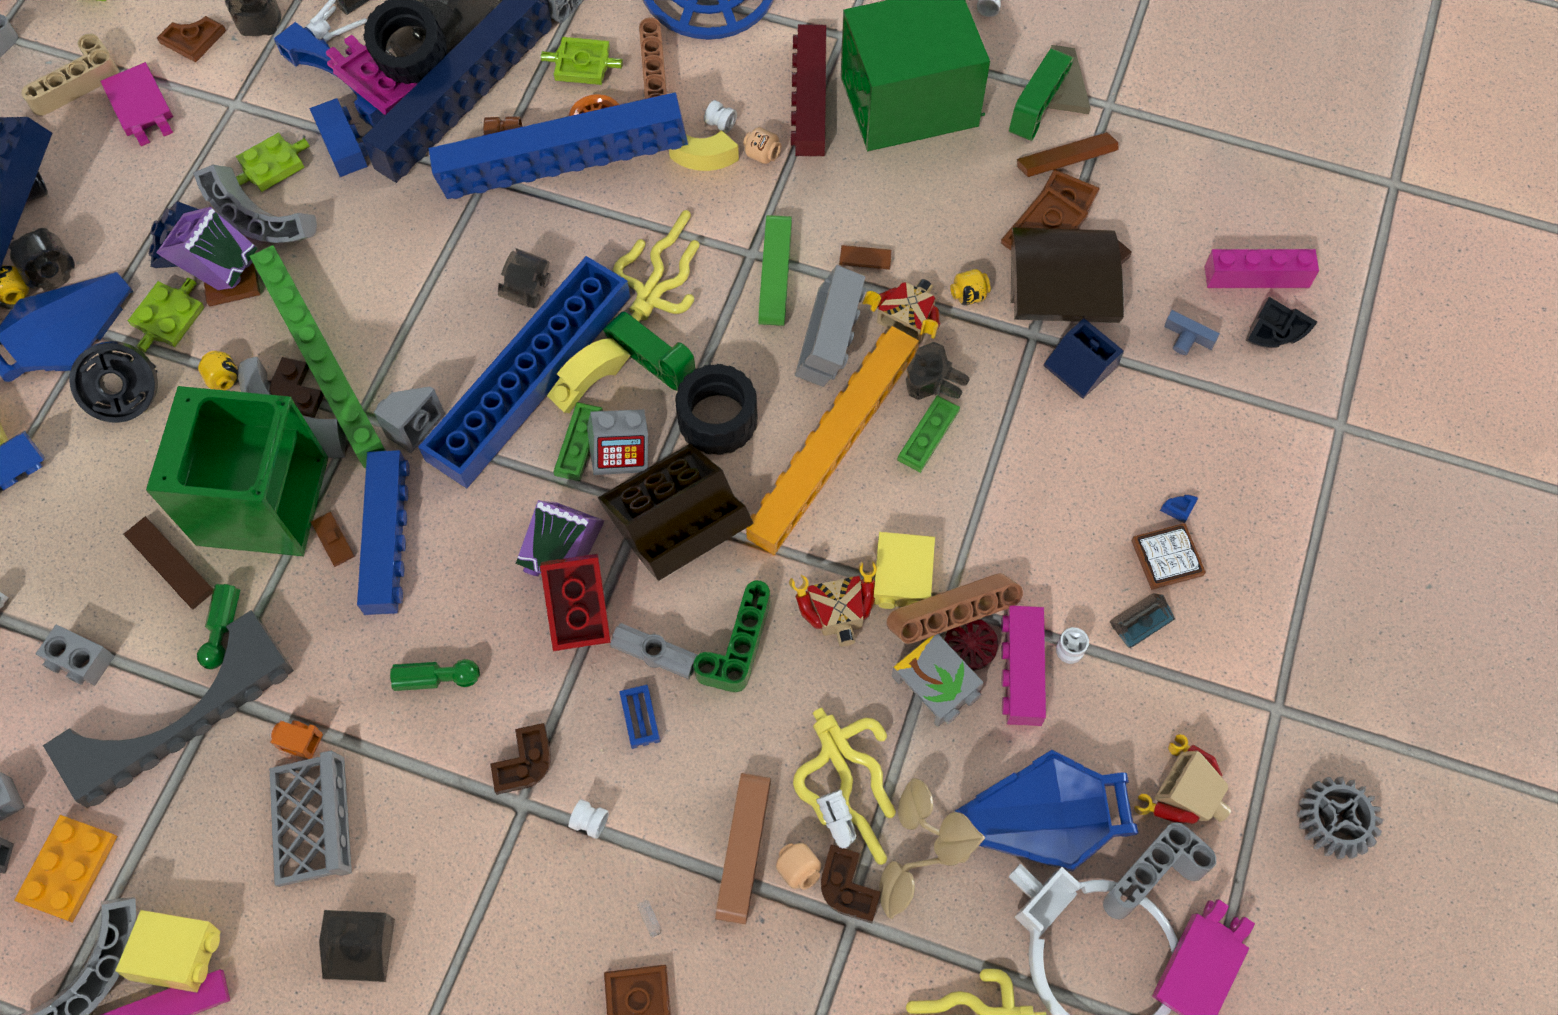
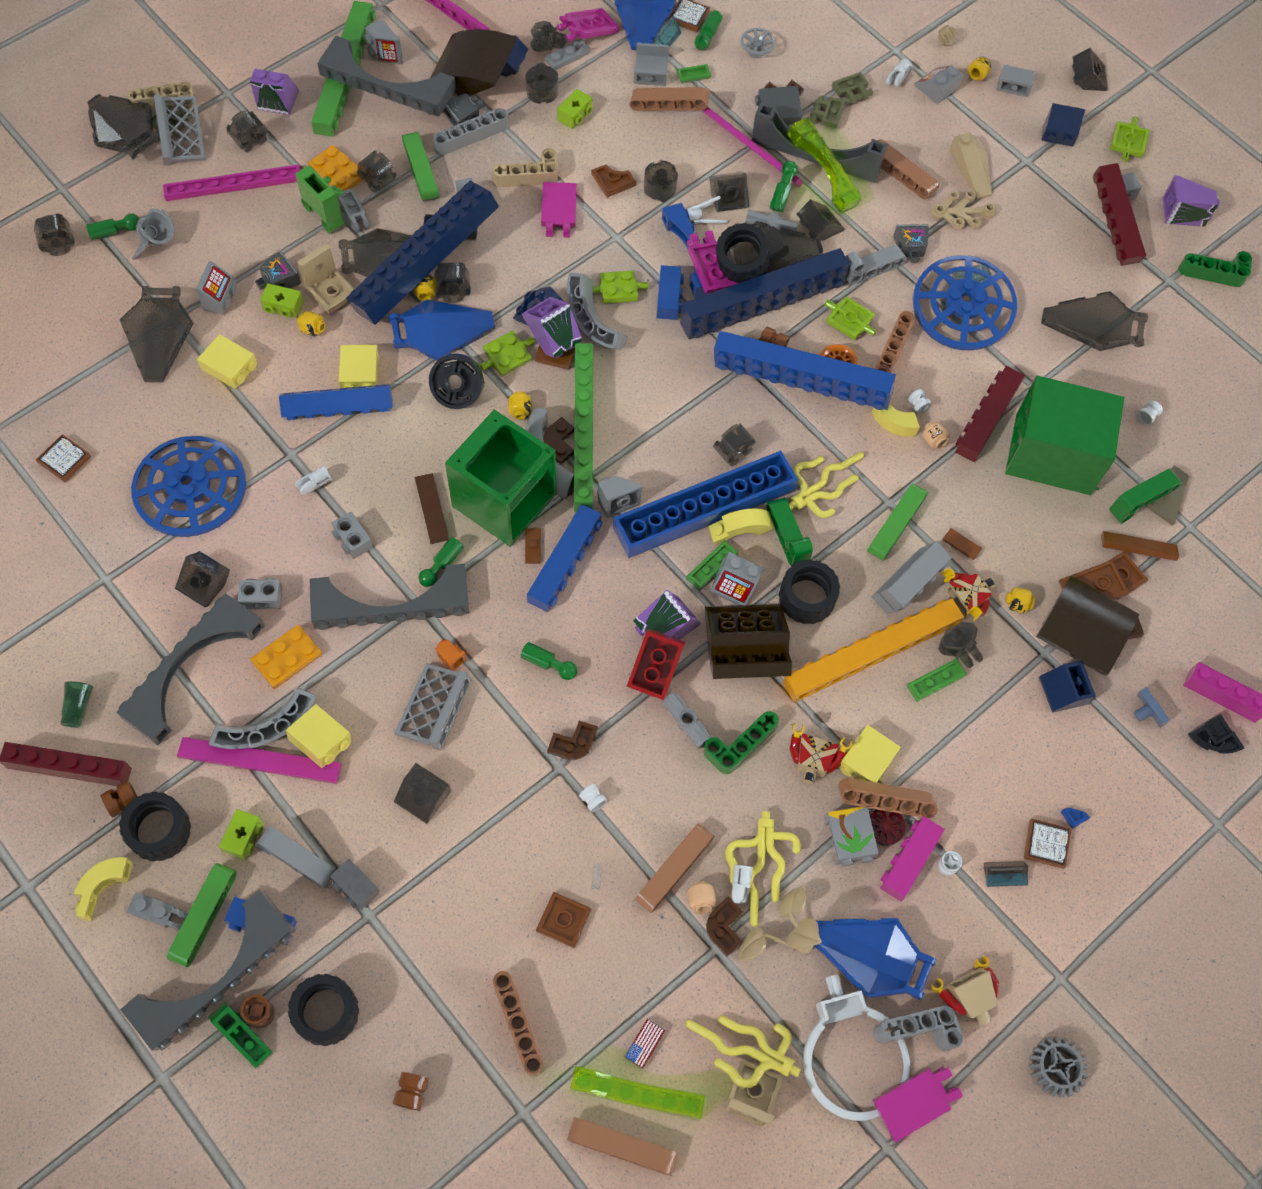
camera: 25 degrees right, 0 degrees up
(644, 740) = (652, 770): blue tile -> none

